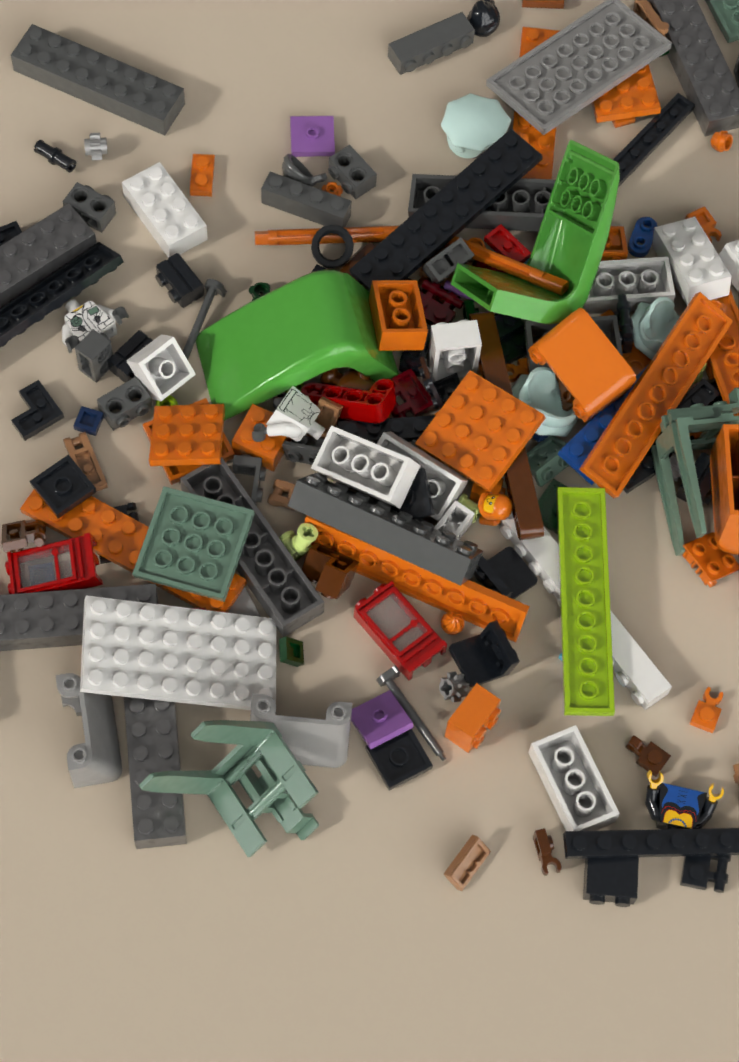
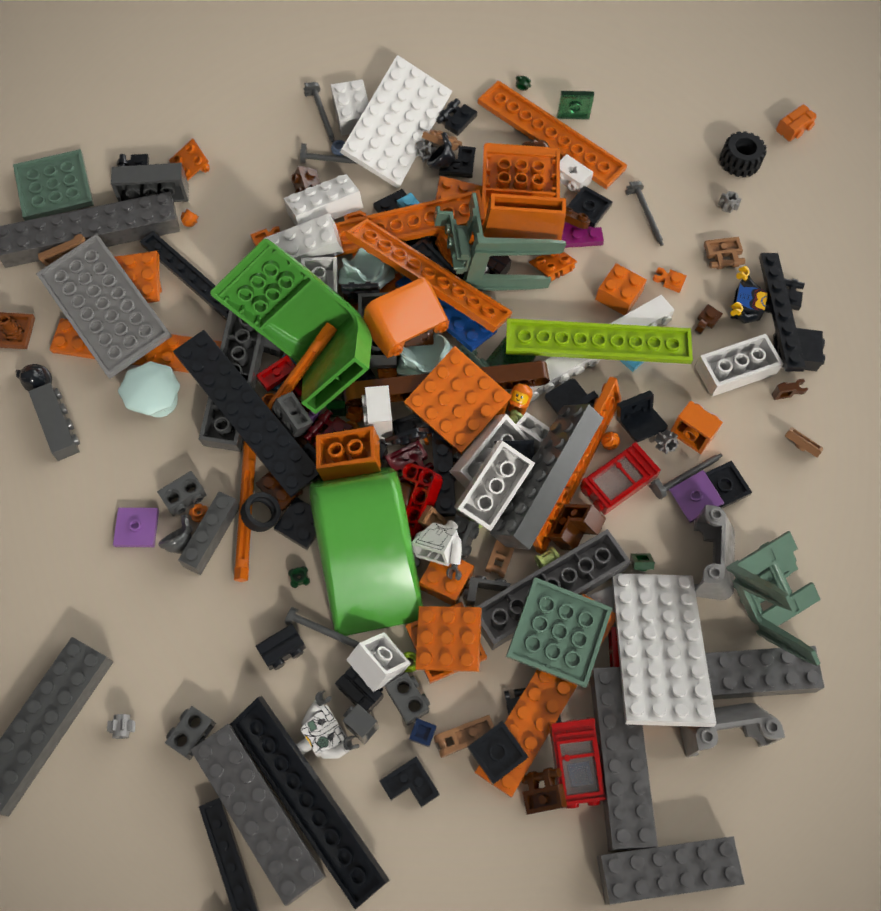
camera: 85 degrees left, 0 degrees up
(55, 156) = (124, 769): black pin -> none
(164, 210) = (203, 660): white brick -> none
(202, 175) = (164, 626): orange plate -> none
(305, 536) = (549, 542): yellowish green bush -> none
(677, 640) = (620, 289): none -> orange brick

